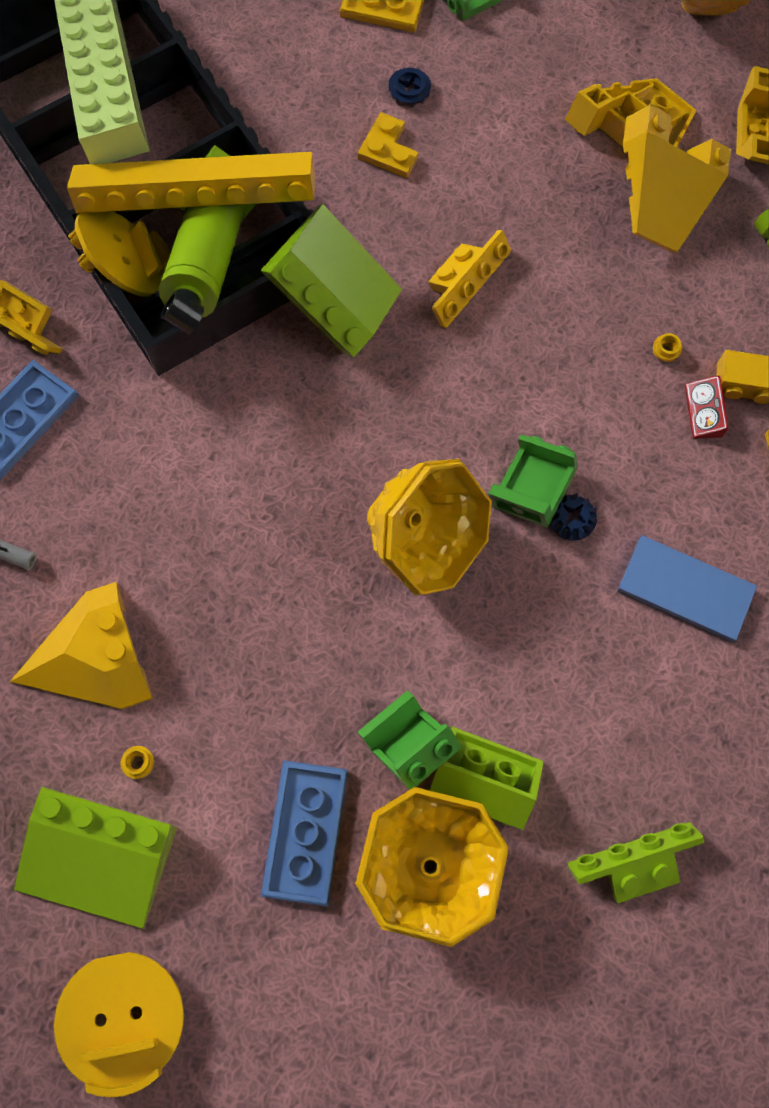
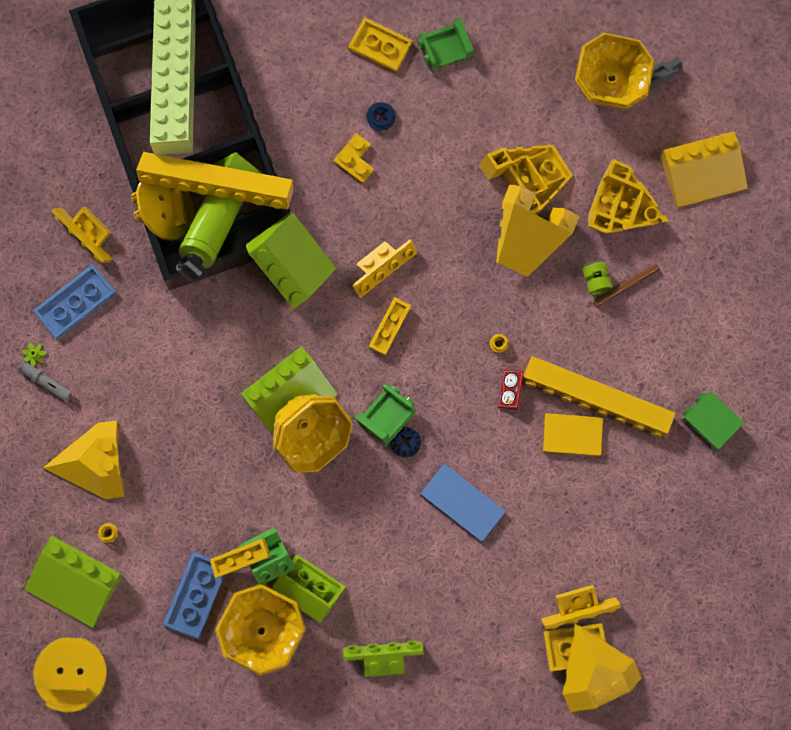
camera: 10 degrees right, 5 degrees up
(360, 472) = (287, 380): none -> lime slope
(366, 752) = (240, 558): none -> yellow plate
(501, 356) = (389, 326): none -> yellow plate

